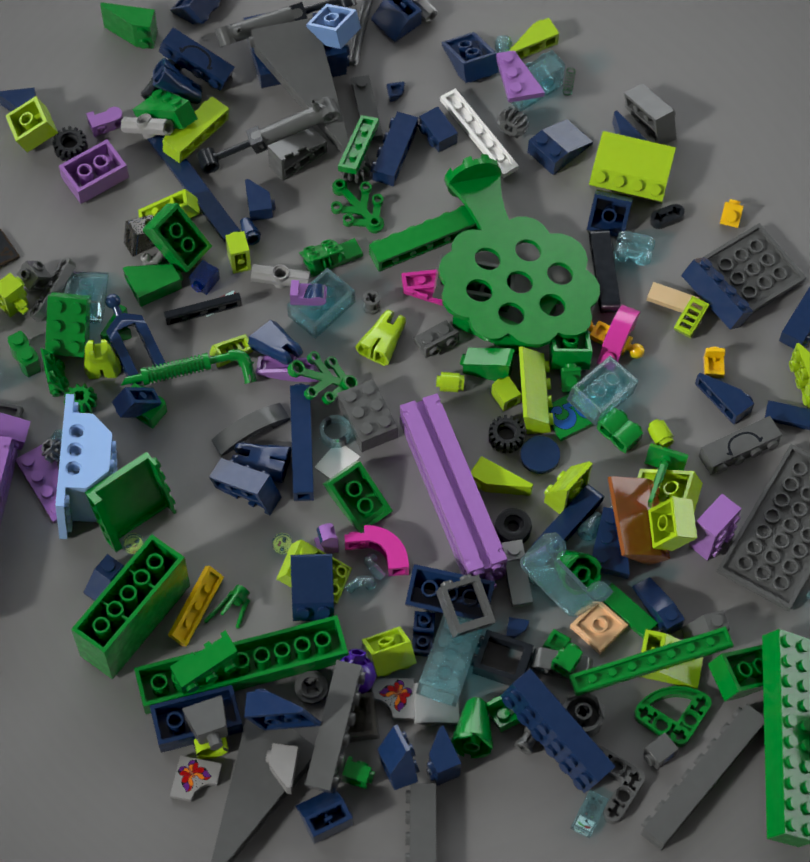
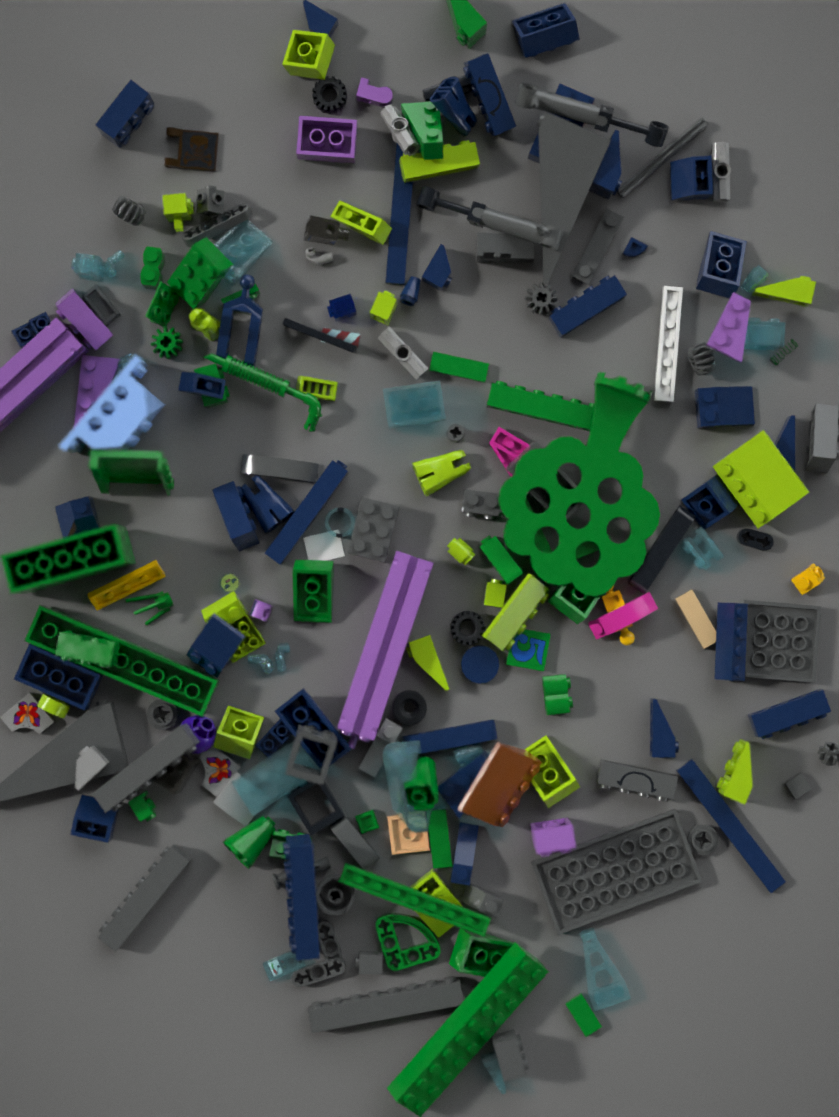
camera: 40 degrees right, 25 degrees up
(52, 449) = (110, 372): dark grey gear -> none
(132, 543) = (120, 495): clear light blue tile -> none
(152, 281) = (298, 279): green slope -> none
(177, 237) = (342, 259): green brick -> none
(207, 721) = (57, 695): dark grey torso -> none
(273, 369) = (346, 440): medium lavender slope -> none
(275, 343) = (349, 413): dark blue piece -> none
(276, 713) = (111, 728): dark blue slope -> none
(307, 294) = (403, 395): medium lavender leg -> none
(324, 376) = (364, 475): green plant -> none
(327, 249) = (451, 358): green hinge -> none
(334, 25) = (619, 160): medium blue slope -> none
(357, 207) = (515, 338): green plant -> none
(358, 144) = (555, 284): green plate -> none
(384, 542) = (304, 647): dark pink arch -> none
(397, 759) = (175, 824): dark blue slope -> none
(437, 129) = (636, 315): dark blue brick -> none
(443, 759) = (207, 849): dark blue slope -> none
(516, 627) = (347, 786): dark blue tile -> none
(567, 486) = (473, 712): lime slope -> none
(567, 660) = (356, 848): green brick -> none
(569, 376) = (555, 621): green bracket -> none
(602, 390) = (568, 654): clear light blue brick -> none
(660, 433) = (584, 721): lime brick -> none
(665, 460) = (568, 747): green piece -> none
(672, 523) = (517, 815): lime brick -> none
(690, 332) = (678, 651): lime slope -> none
(714, 362) = (677, 696): yellow bracket -> none

